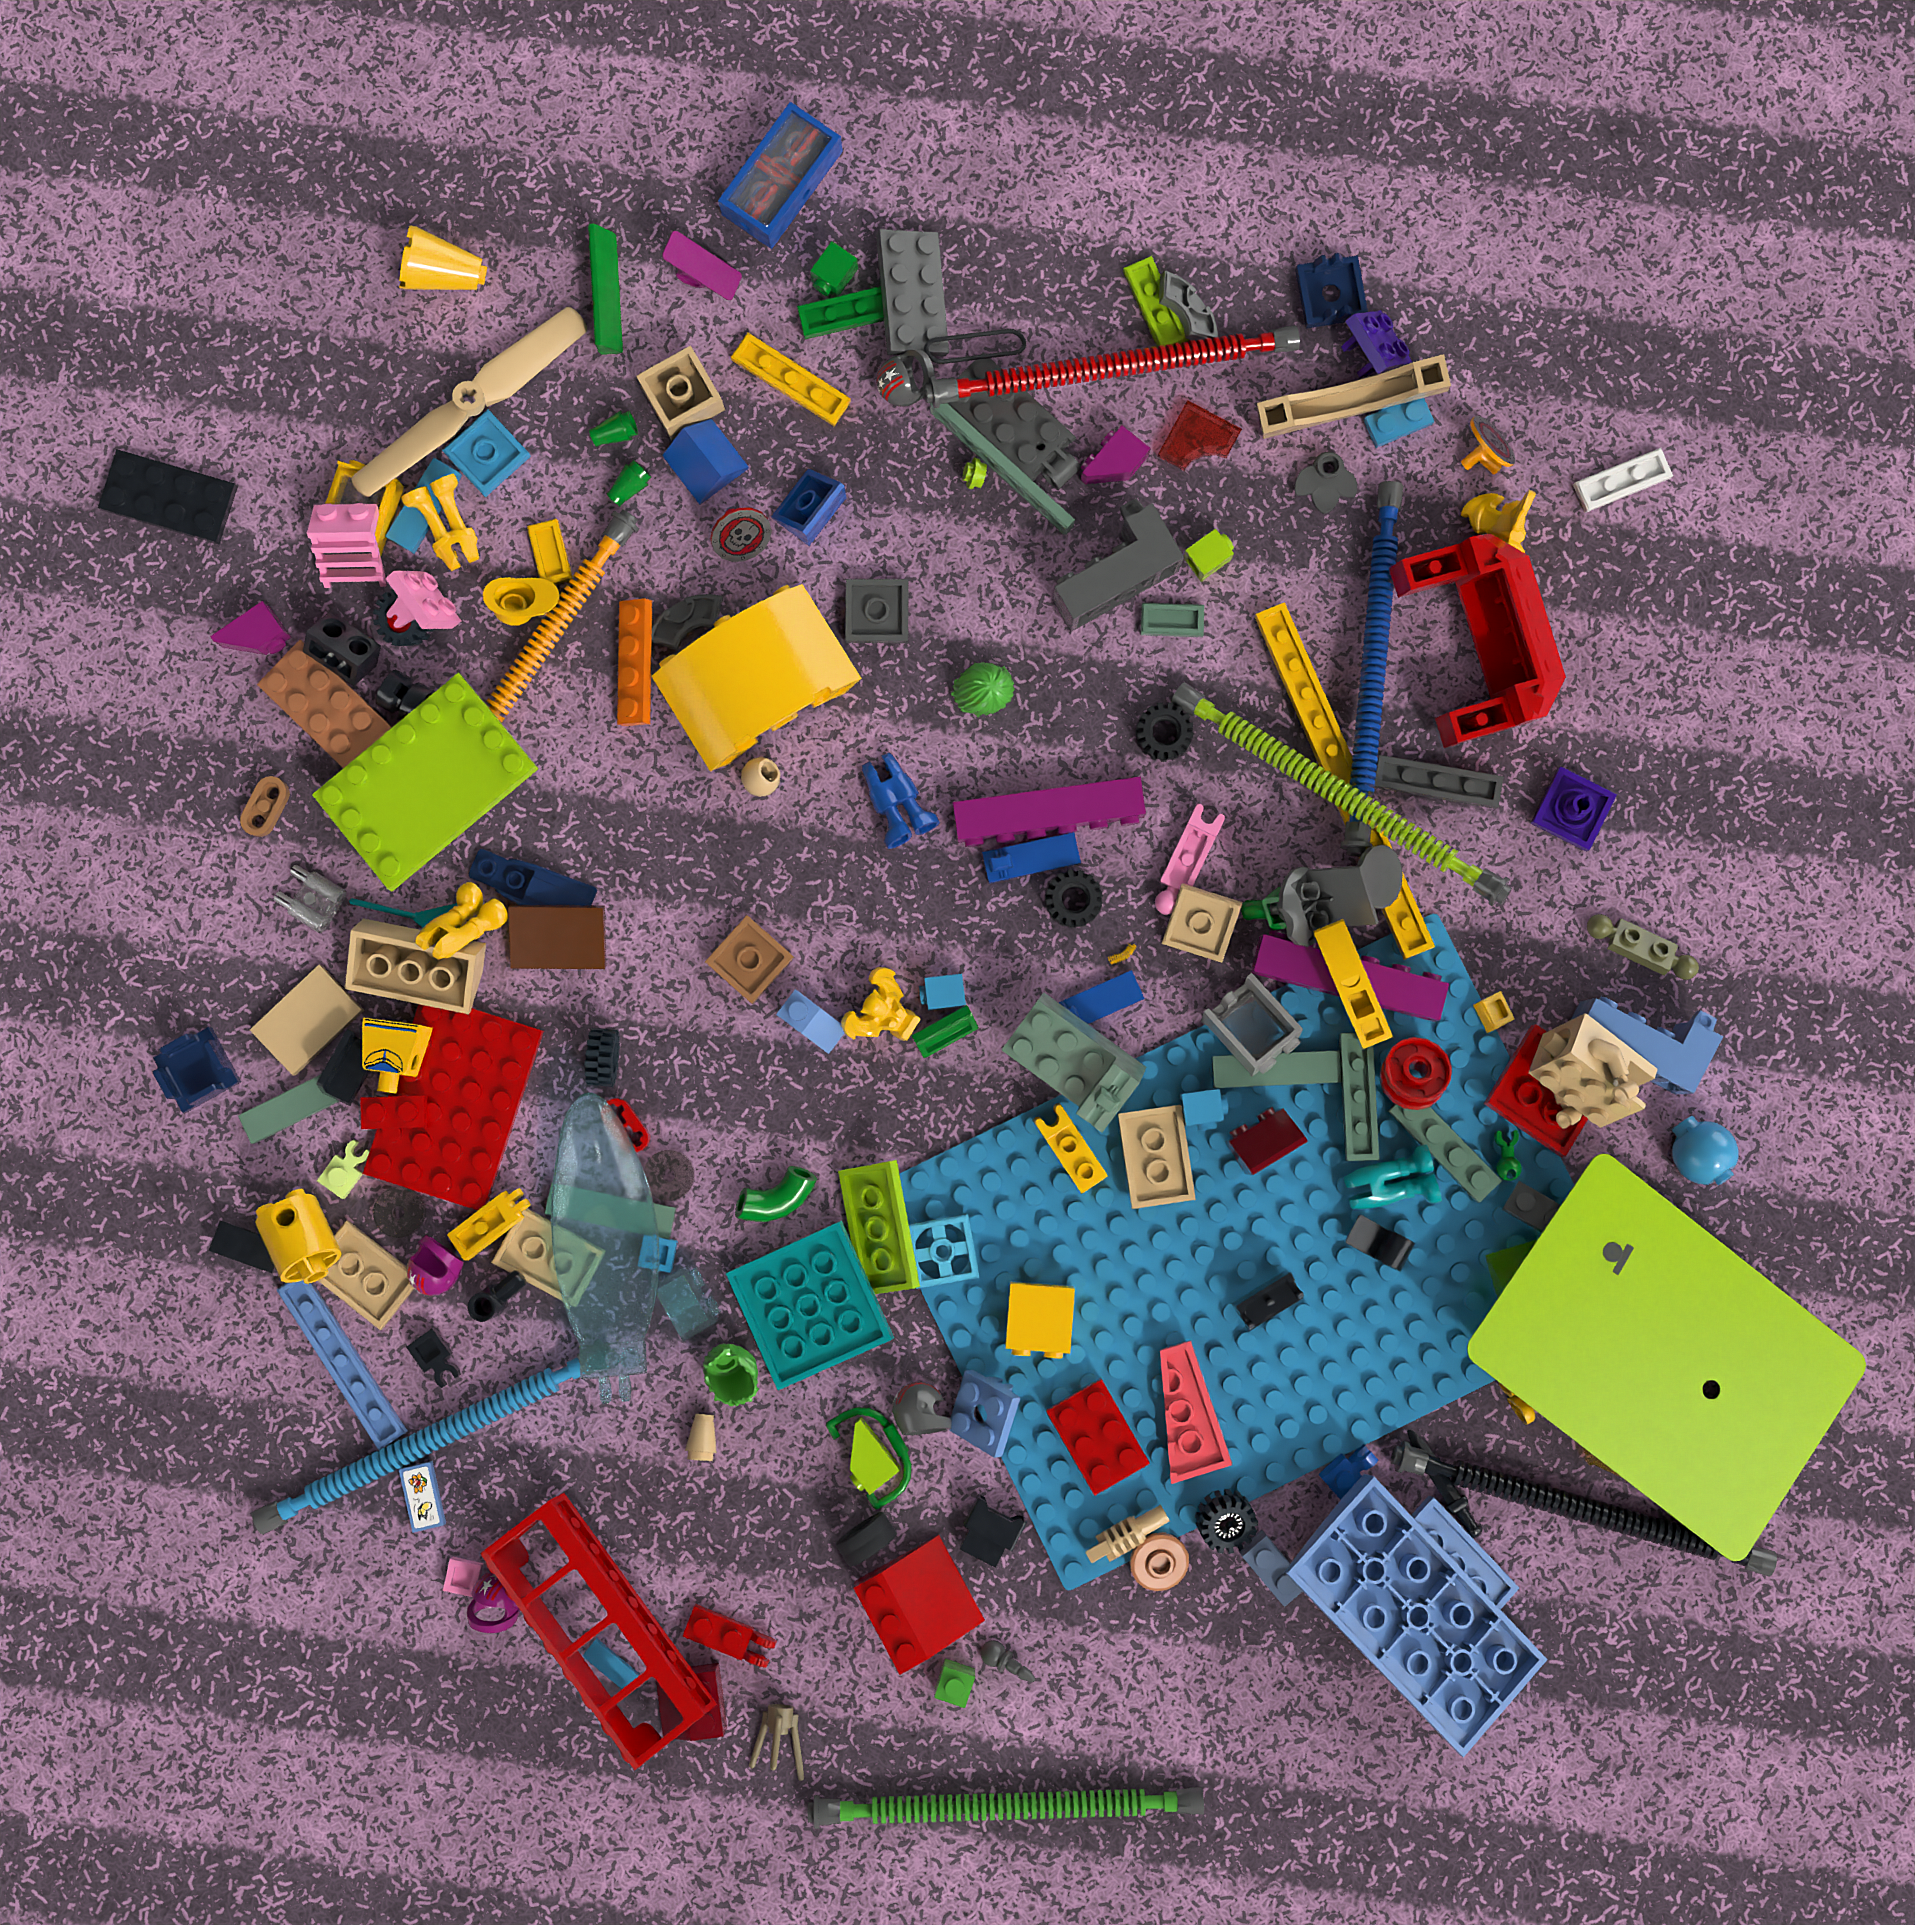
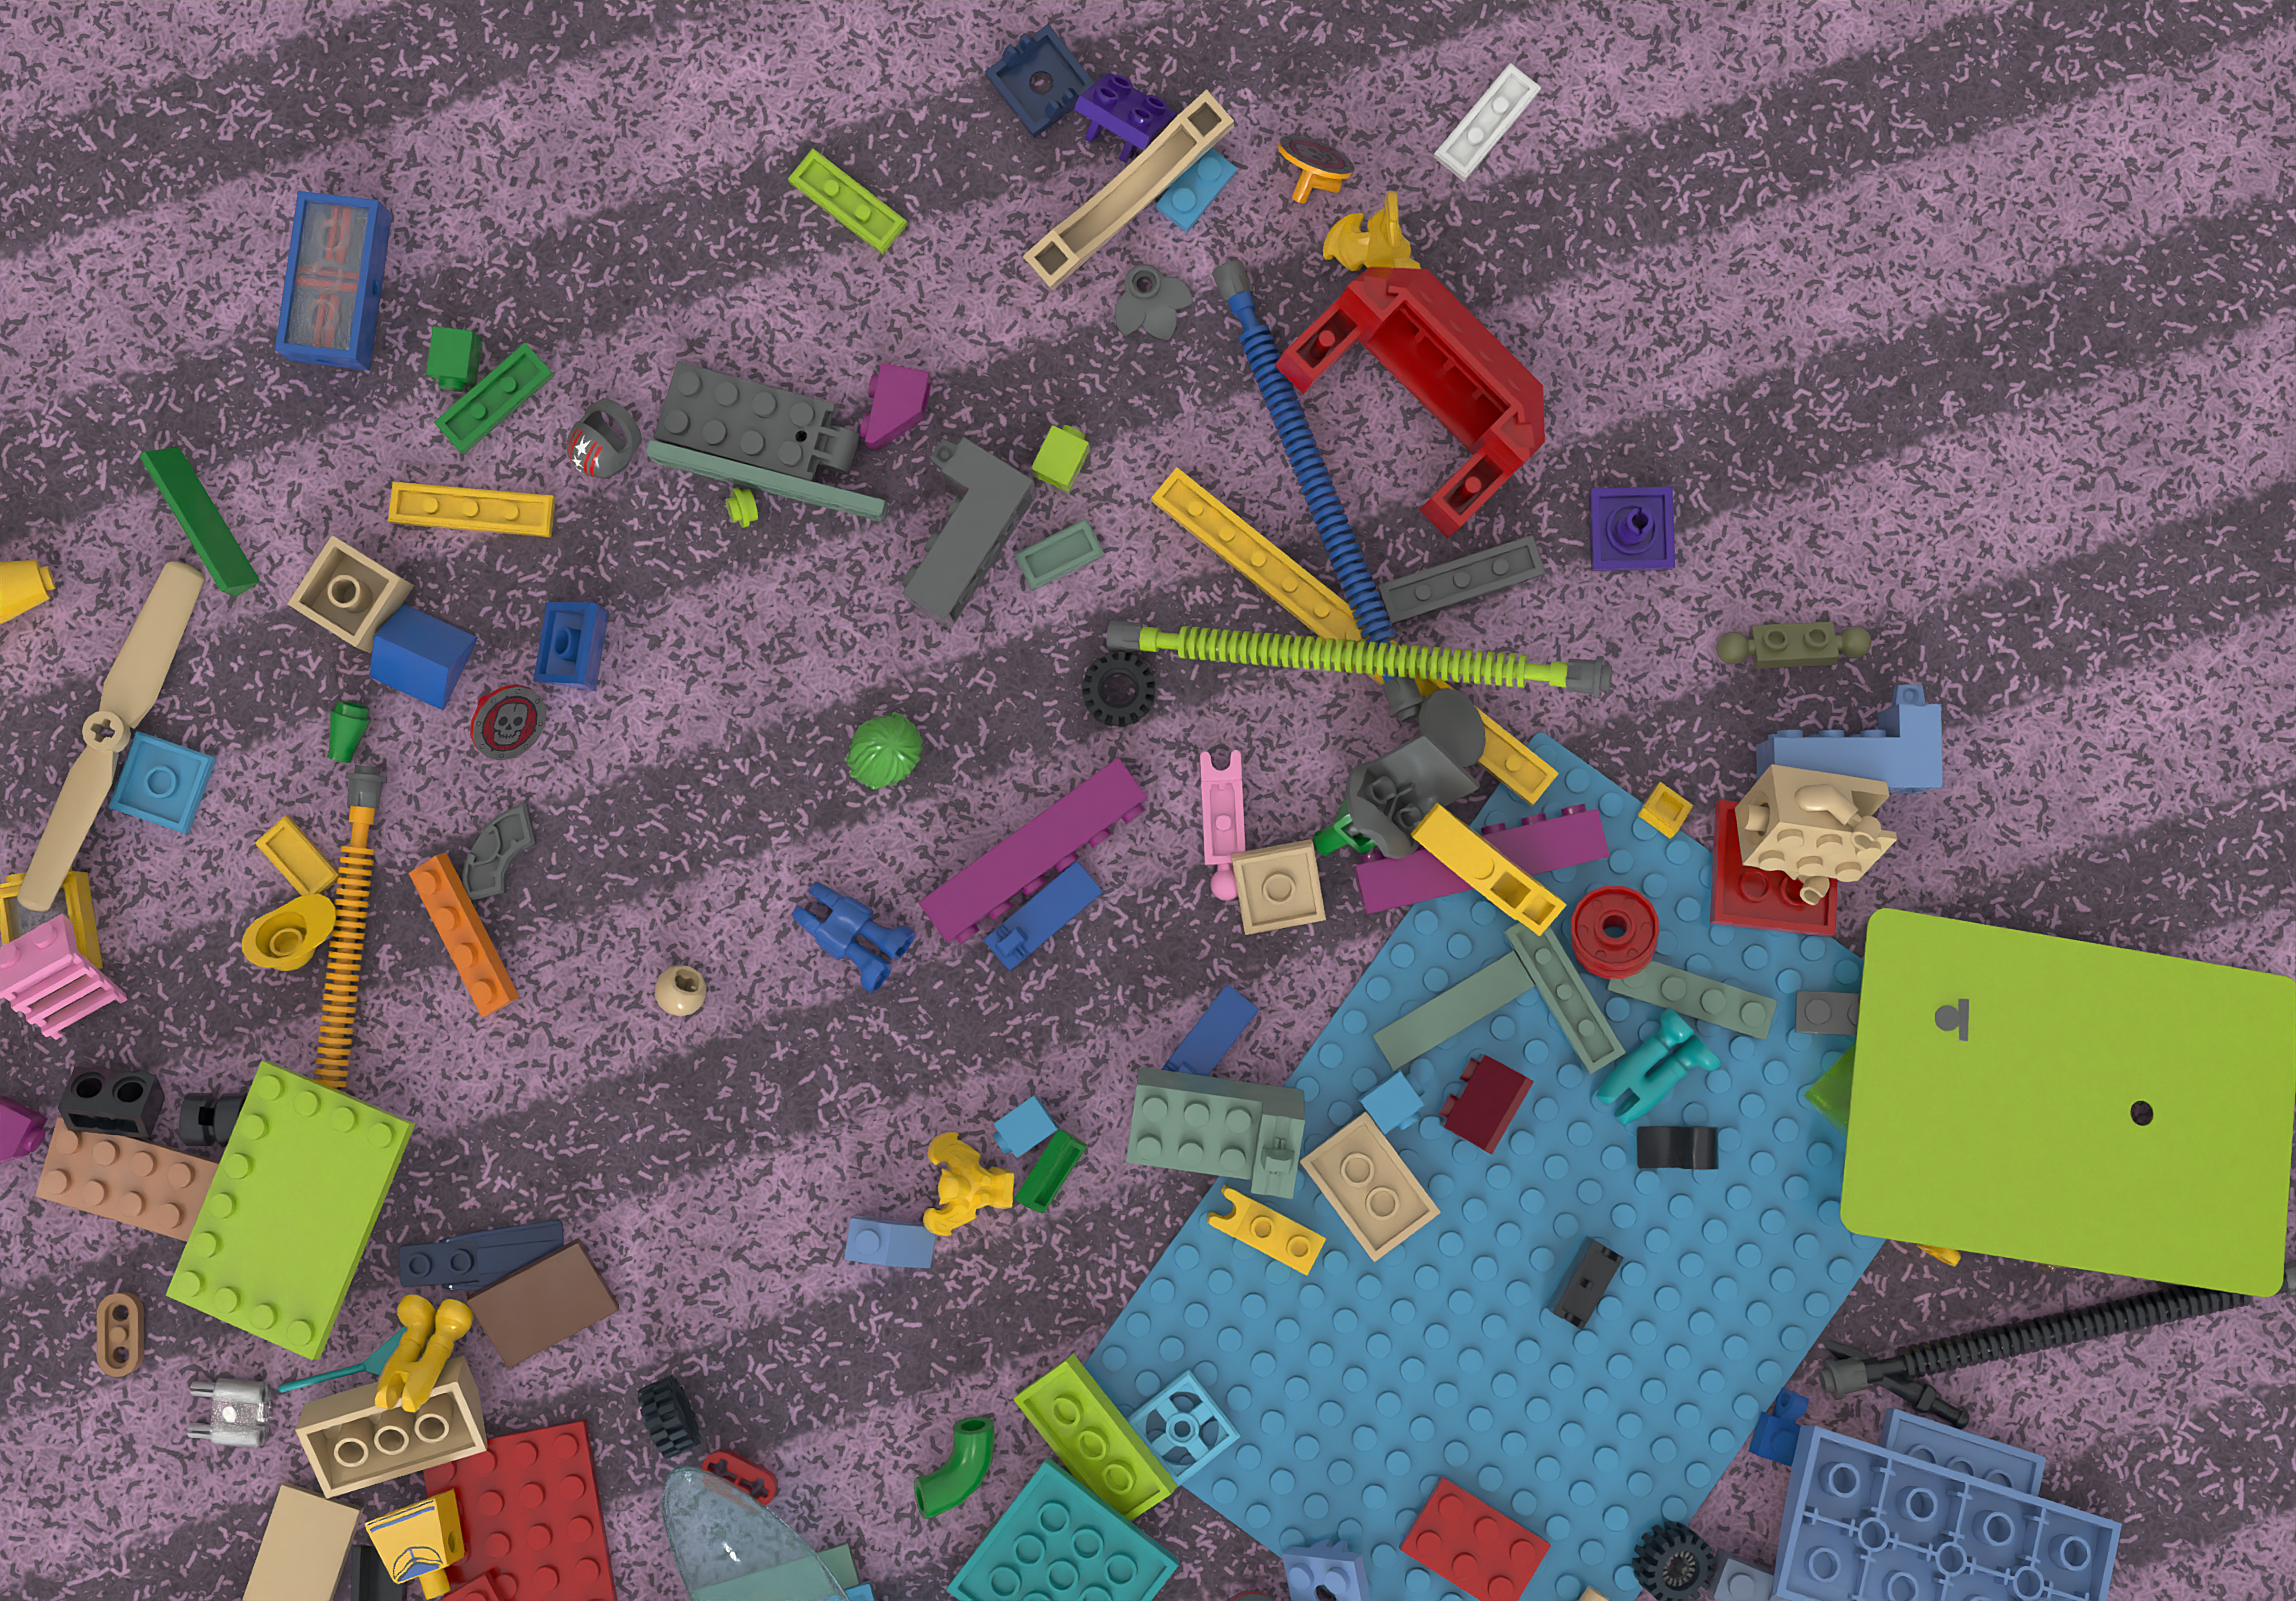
camera: 25 degrees left, 0 degrees up
(410, 525) = (121, 882): dark azure tile -> none
(413, 609) = (171, 1011): bright pink plate -> none
(444, 491) = (166, 911): yellow piece -> none
(615, 429) = (298, 675): green cone -> none
(683, 1171) = (817, 1528): clear smoke piece -> none
(700, 267) = (296, 436): magenta piece -> none
(749, 959) = (780, 1209): medium nougat plate -> none
(754, 674) = (610, 876): yellow panel -> none
(877, 610) = (713, 725): dark grey plate -> none
(912, 291) = (558, 335): dark grey plate -> none
(972, 335) = (672, 372): black piece -> none
(1039, 1319) = (1335, 1447): yellow piece -> none
(1087, 885) = (1117, 912): black tyre -> none
(1120, 958) = (1201, 981): yellow leg -> none
(1171, 356) = (662, 427): red hose -> none
(1185, 303) = (879, 182): dark grey tile -> none
(1191, 1422) = (1575, 1473): coral wing -> none
(1198, 435) = (974, 326): clear red tile -> none
(1253, 1026) = (1400, 977): window -> none
(1508, 1162) = (1772, 974): green arm -> none
(1704, 1151) = (1988, 843): dark azure brick -> none

